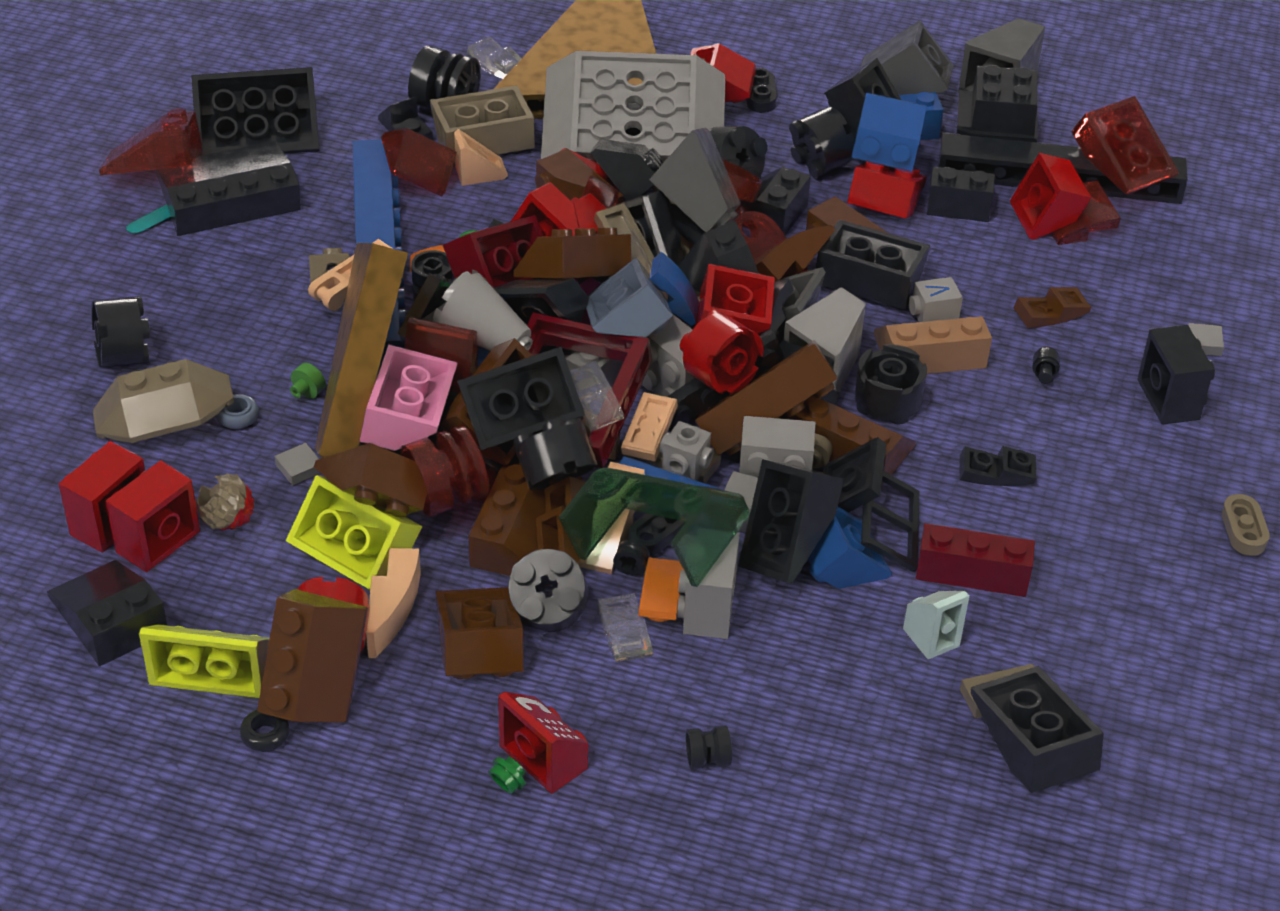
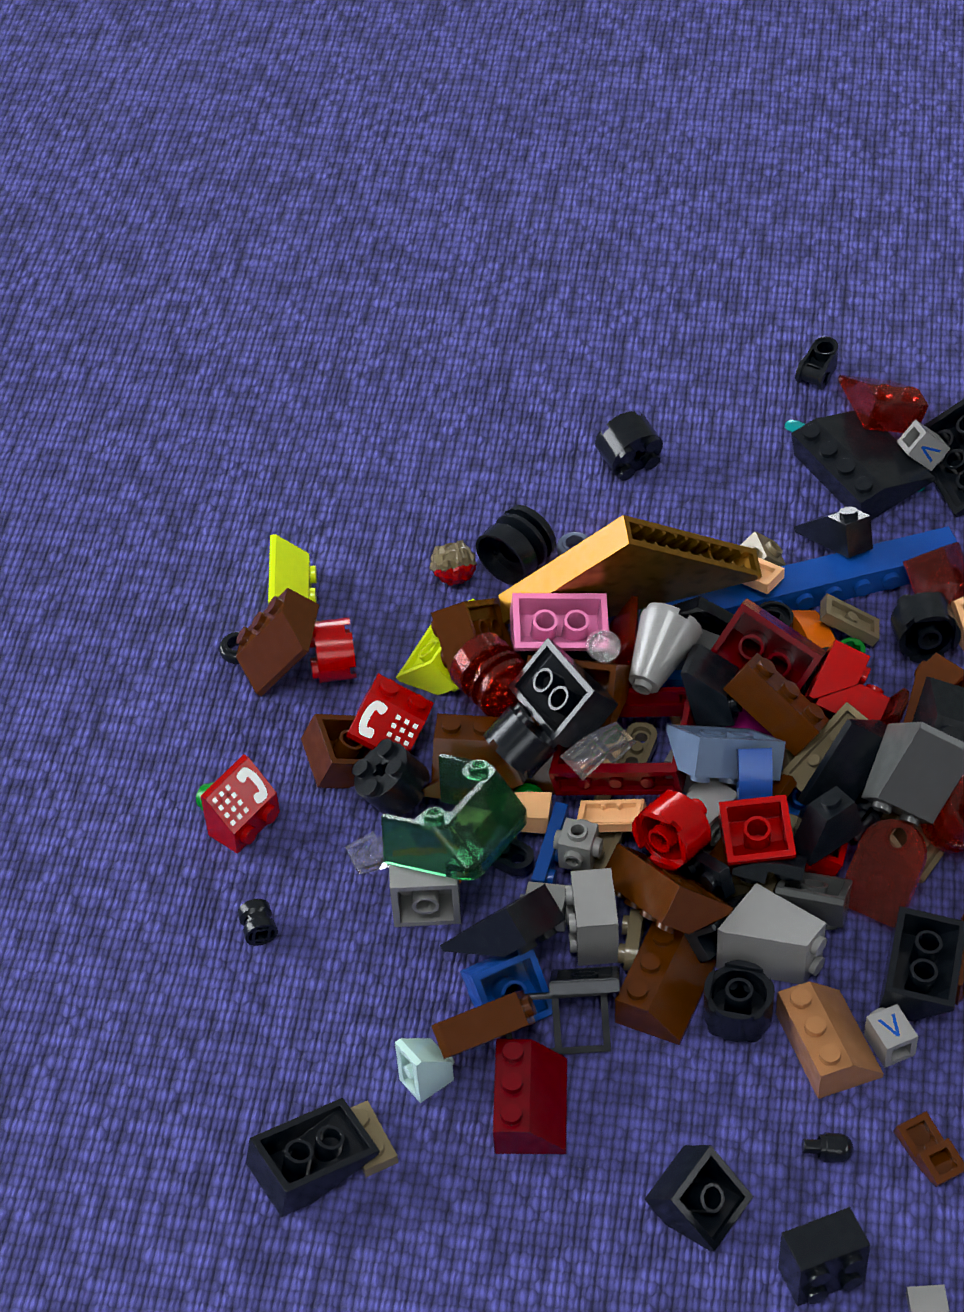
camera: 85 degrees right, 5 degrees up
(65, 185) = (818, 363): none -> black piece
(90, 486) = (434, 488): red brick -> none
(108, 609) = (335, 528): black slope -> none
(153, 516) = (419, 519): red brick -> none
(161, 401) = (559, 497): dark tan wedge -> none
(232, 438) = (516, 544): none -> black wheel
(237, 131) = (923, 445): none -> light grey brick
(327, 204) = (842, 531): none -> black slope
(392, 598) = (351, 686): light nougat slope -> none
(440, 230) = (849, 619): none -> dark tan plate
(456, 580) = (389, 713): none -> red slope
(468, 354) = (607, 647): none -> clear wheel
(473, 181) = (925, 625): none -> black brick
(793, 253) = (884, 882): reddish brown slope -> none
(903, 556) = (484, 1023): none -> reddish brown slope
(1007, 468) = (659, 1113): black slope -> none
(1094, 452) = (699, 1196): none -> black slope

